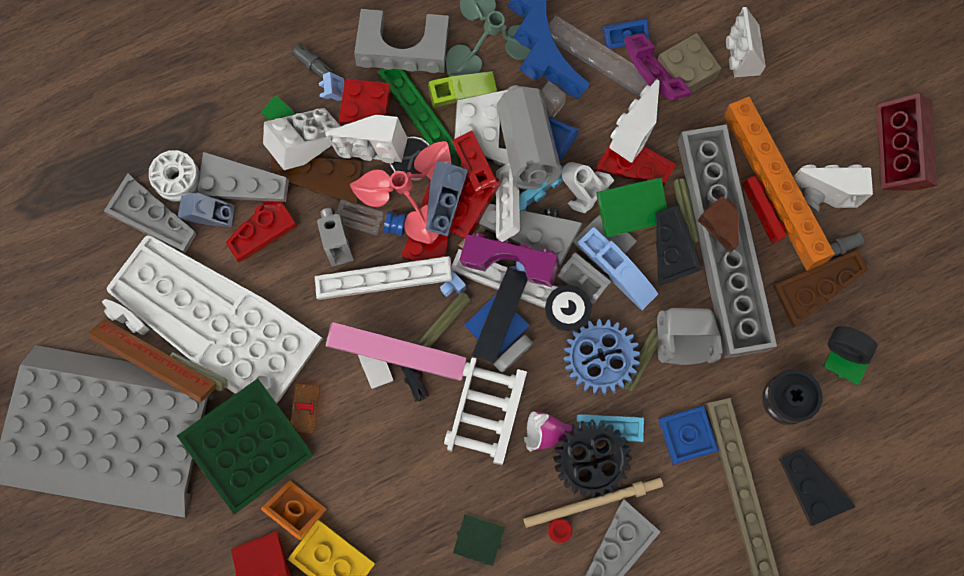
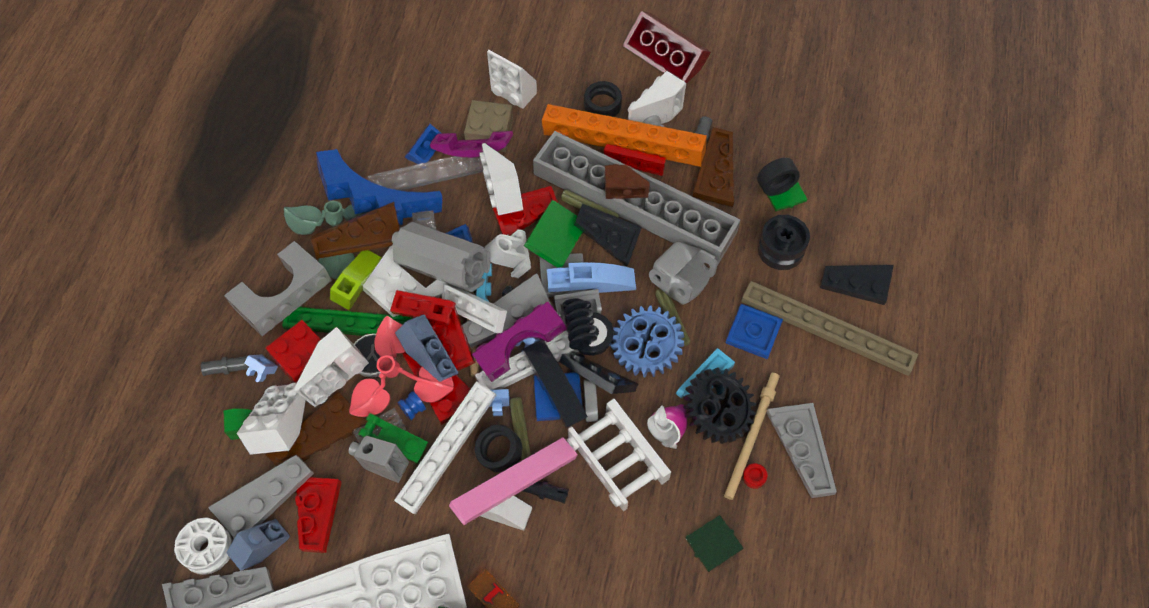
camera: 50 degrees left, 15 degrees down
(358, 234) = (409, 444): none -> green plate
(404, 305) = (484, 441): none -> black tyre
(497, 59) = (359, 234): none -> reddish brown wing
(538, 343) = (598, 374): none -> black wing
(563, 293) = (579, 323): none -> black piece
(812, 124) = (603, 88): none -> black tyre

